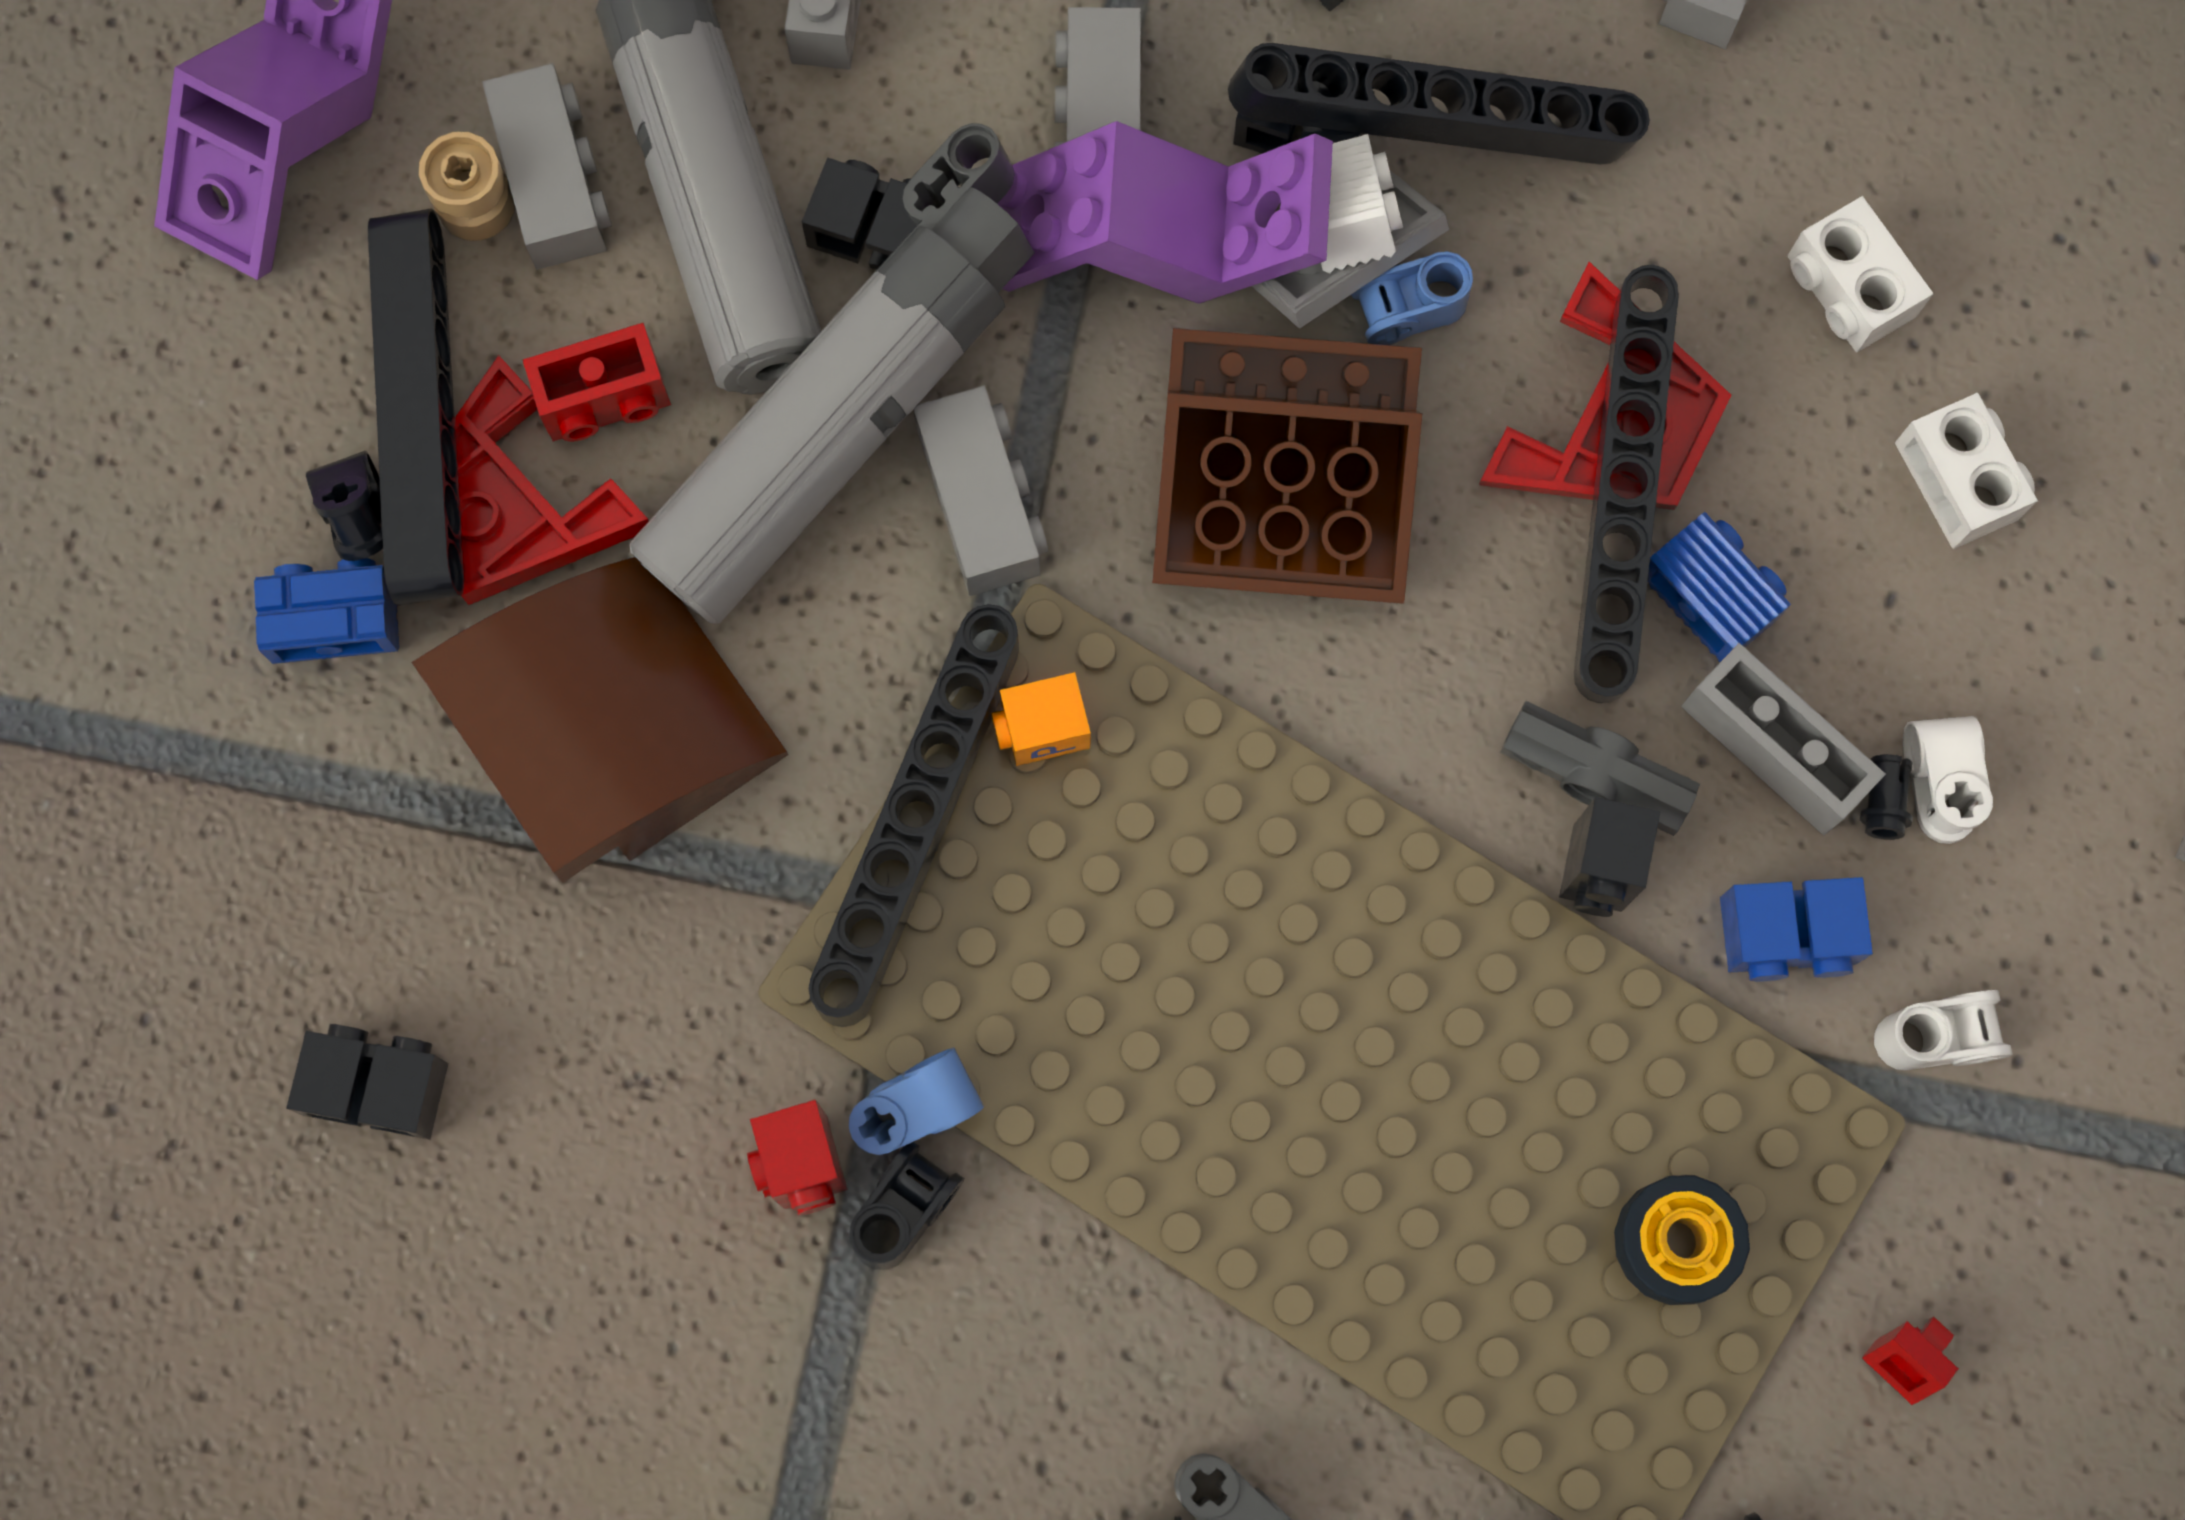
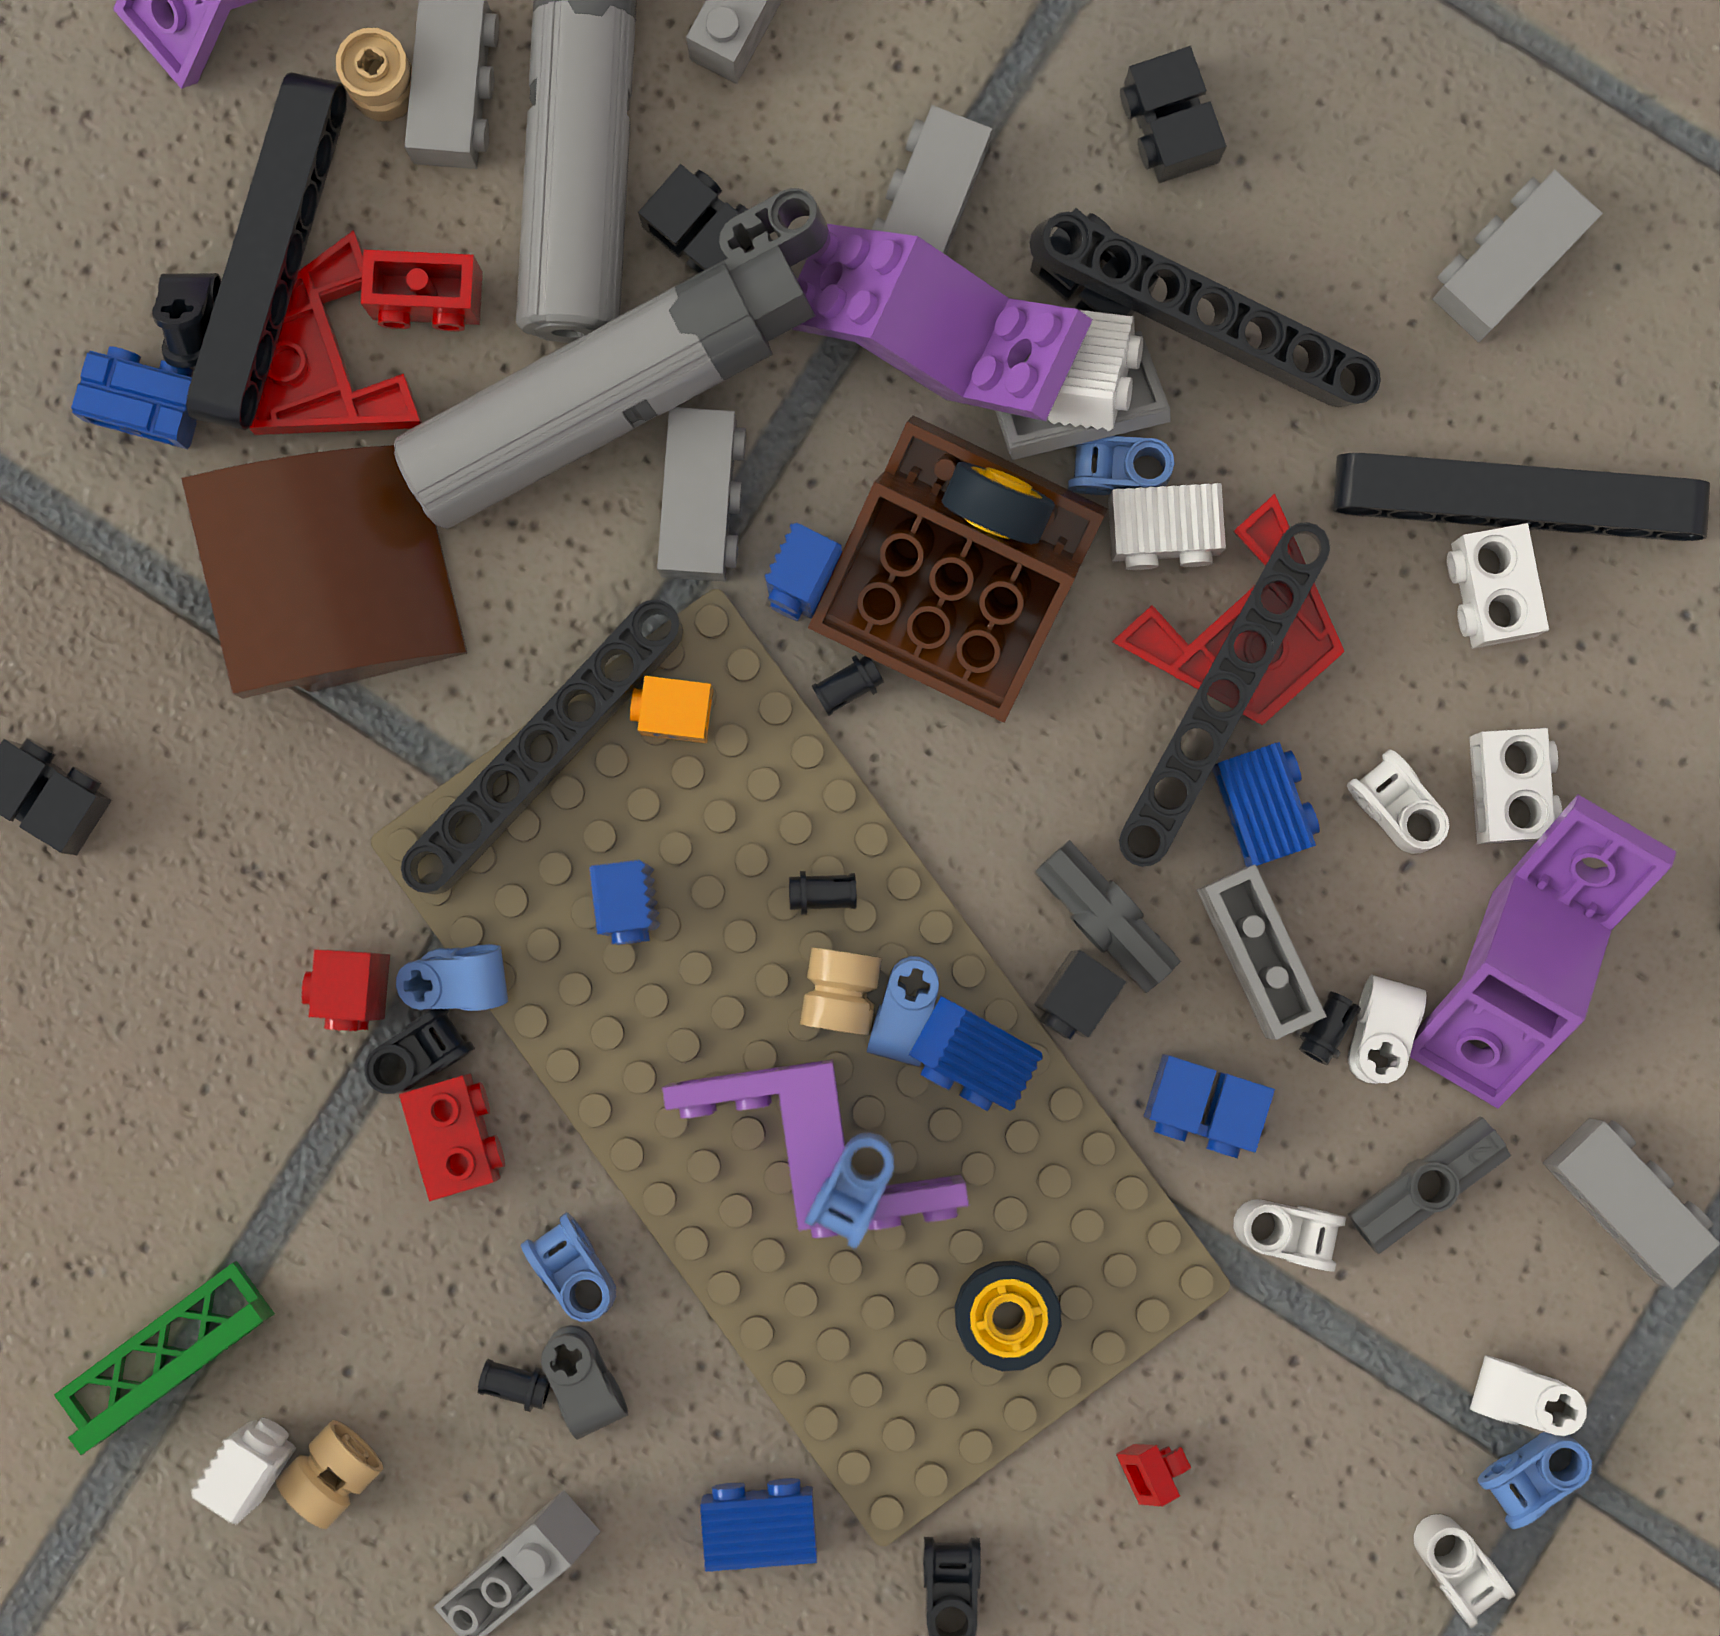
camera: 20 degrees right, 10 degrees up
(977, 1286) = (452, 1136): none -> red brick
(1074, 938) = (624, 901): none -> blue brick
(1124, 523) = (801, 572): none -> blue brick
(1167, 1383) = (570, 1266): none -> medium blue piece
(1218, 629) = (848, 684): none -> black pin
(1282, 855) = (822, 892): none -> black pin
(1308, 366) = (998, 503): none -> black wheel
(1347, 942) = (840, 991): none -> tan wheel
(1393, 1127) = (814, 1138): none -> medium lavender bracket
(1429, 961) = (903, 1016): none -> medium blue piece
(1465, 1146) = (852, 1192): none -> medium blue piece
(1487, 339) = (1167, 524): none -> white brick
(1526, 962) = (974, 1054): none -> blue brick
(1817, 181) = (1520, 495): none -> black beam
(1854, 531) = (1398, 801): none -> white piece
(2049, 952) = (1459, 1165): none -> dark grey piece
(2078, 623) = (1539, 951): none -> medium lavender bracket

